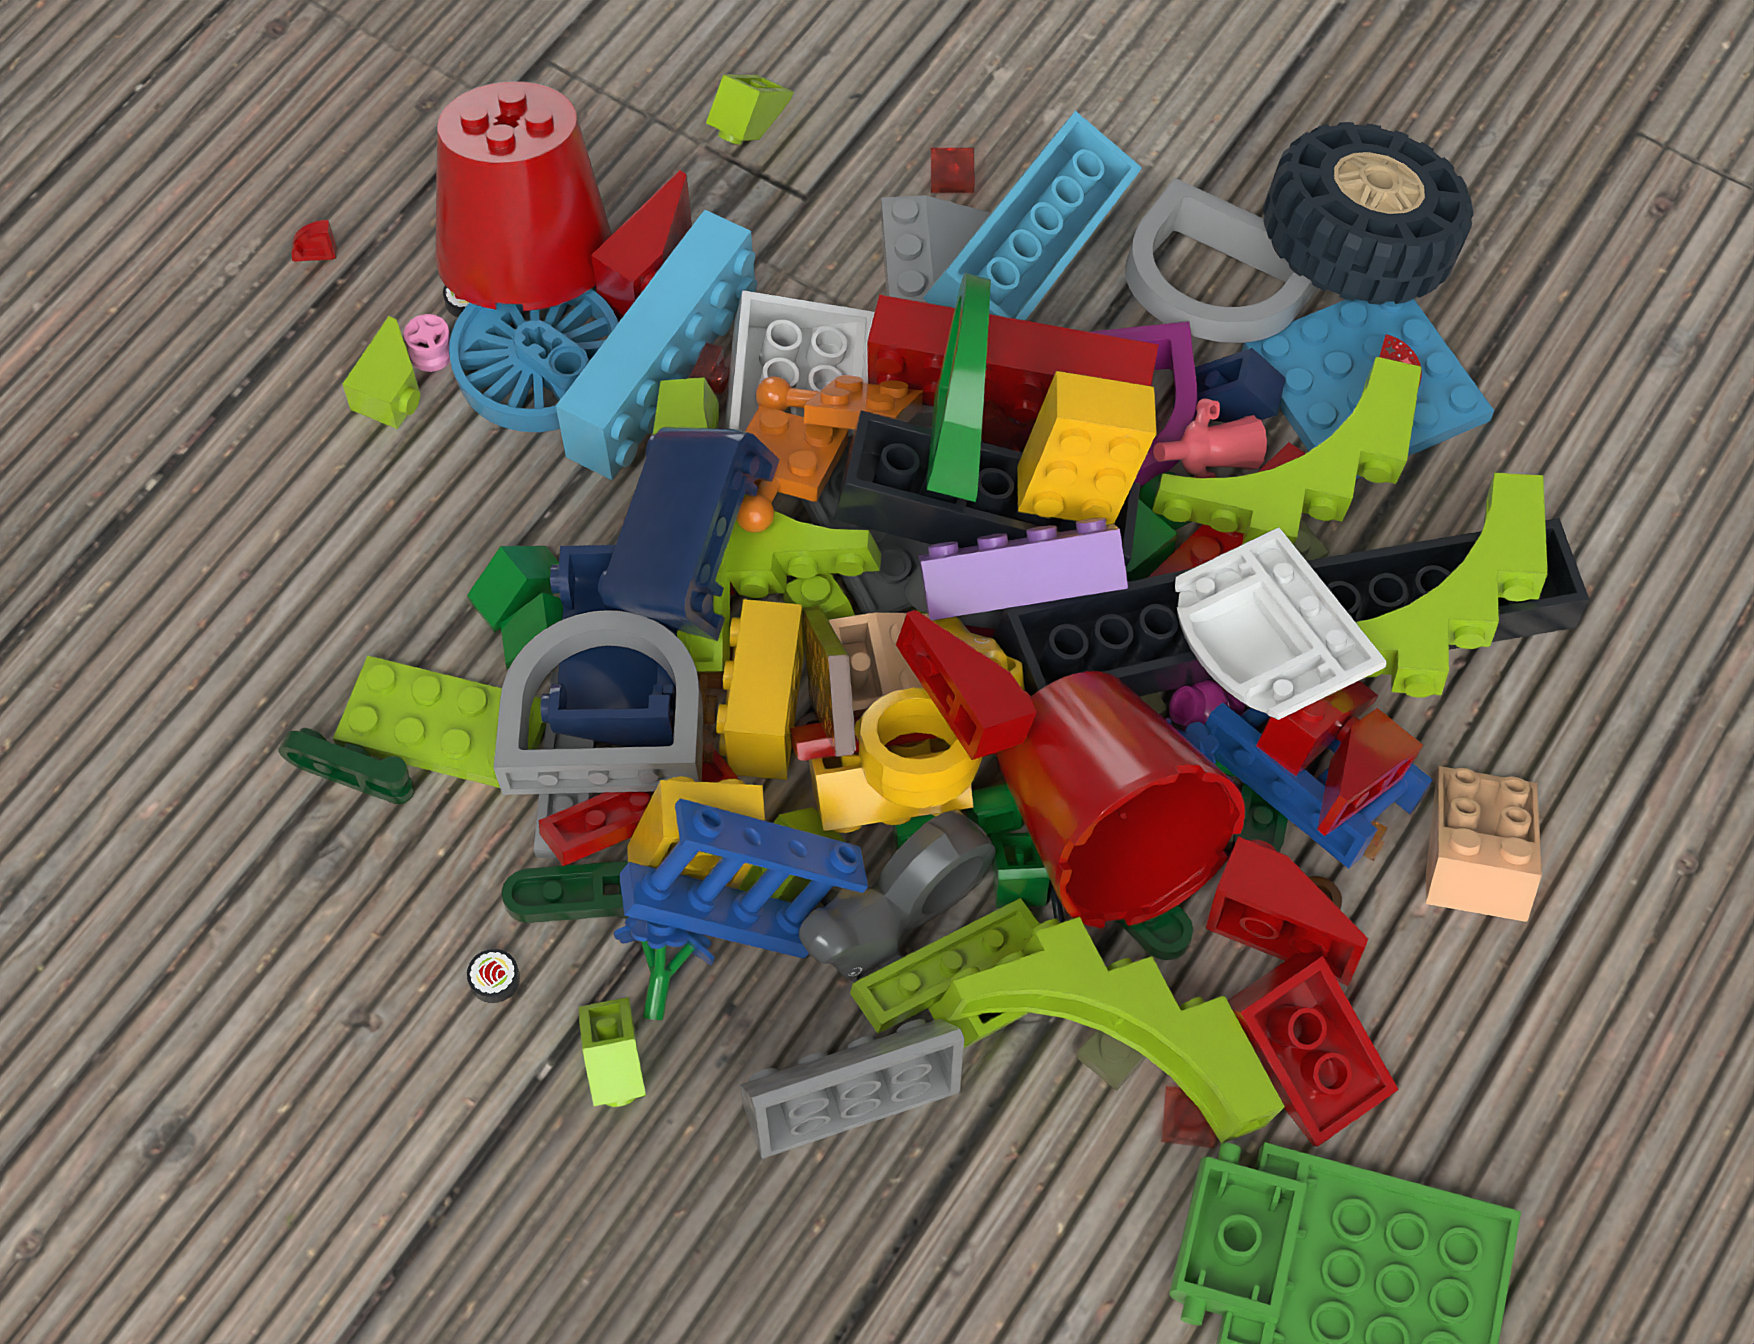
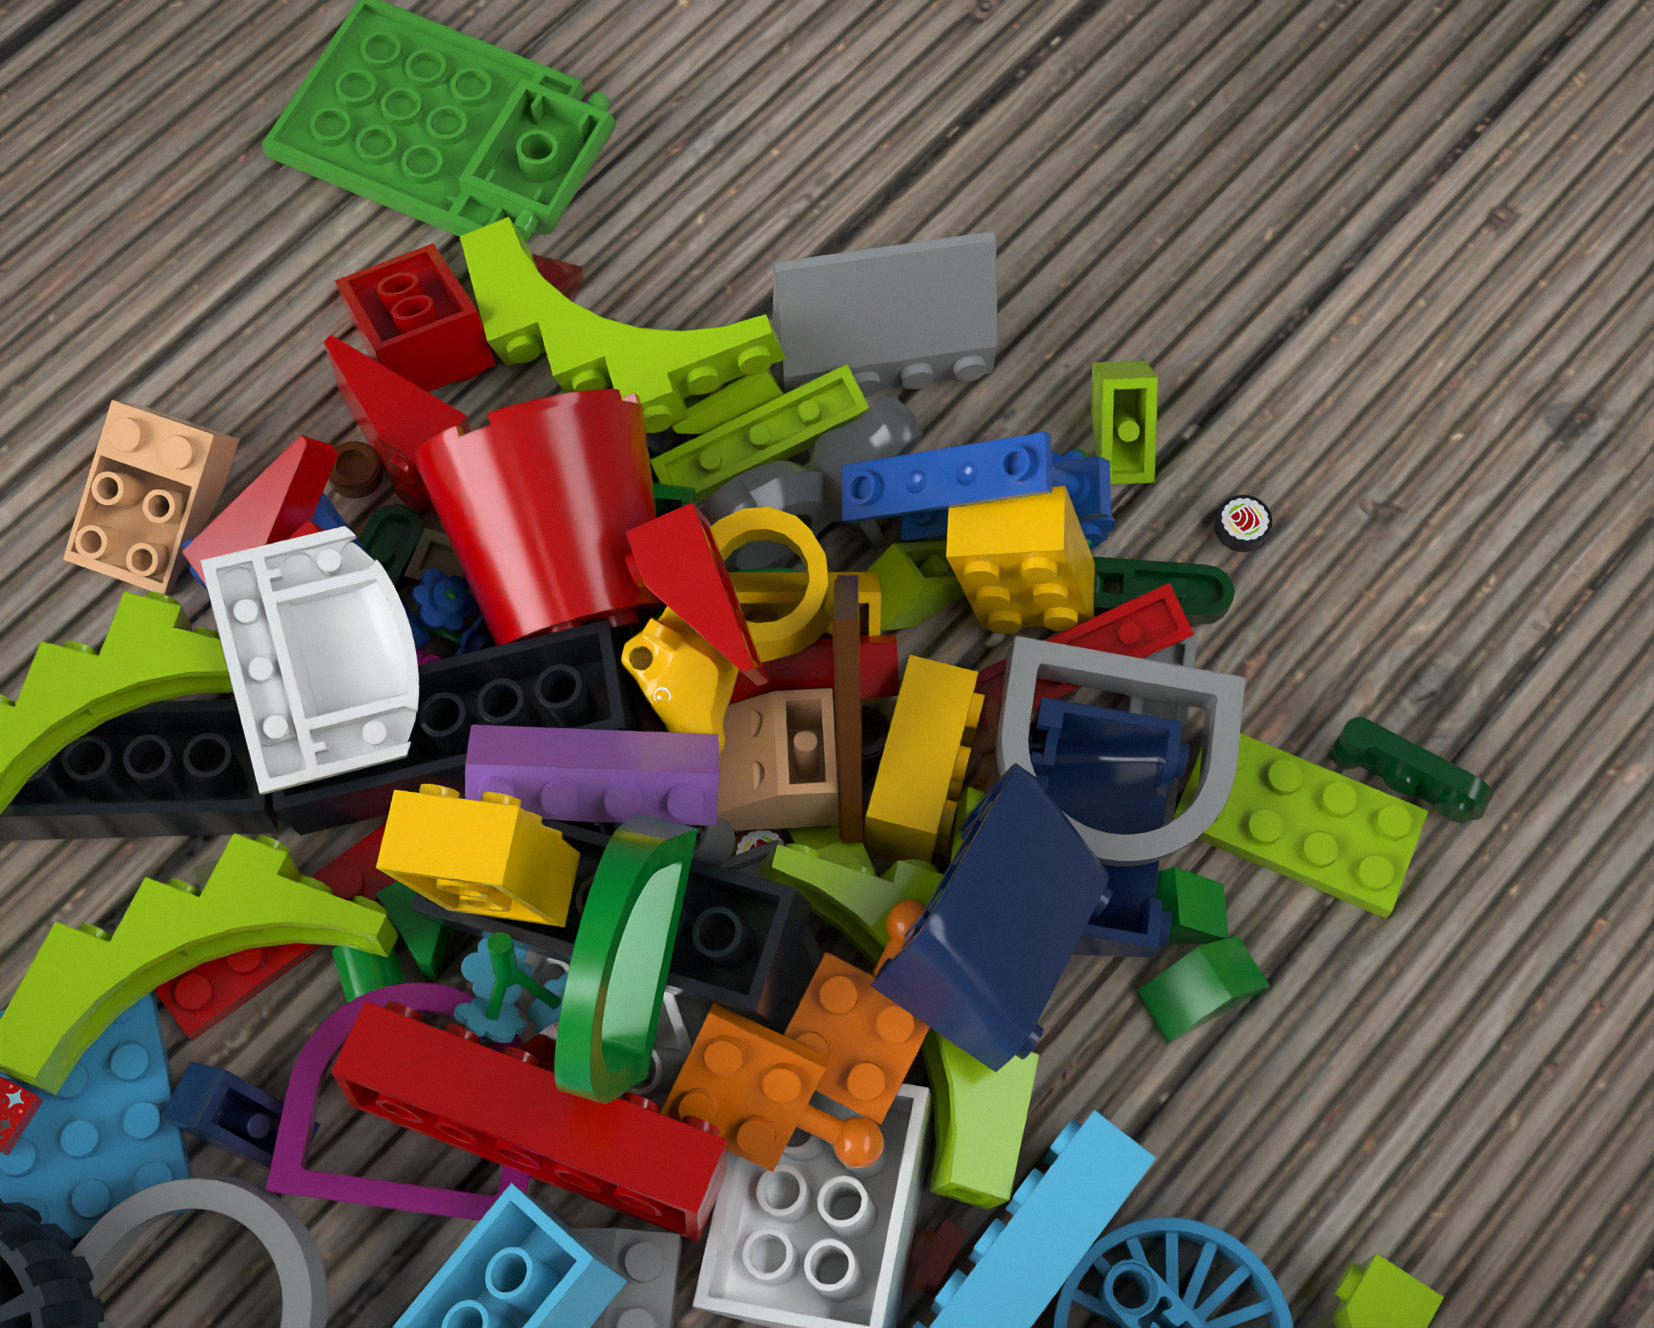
camera: 175 degrees left, 5 degrees up
(1224, 445) = (283, 1016): coral piece -> none

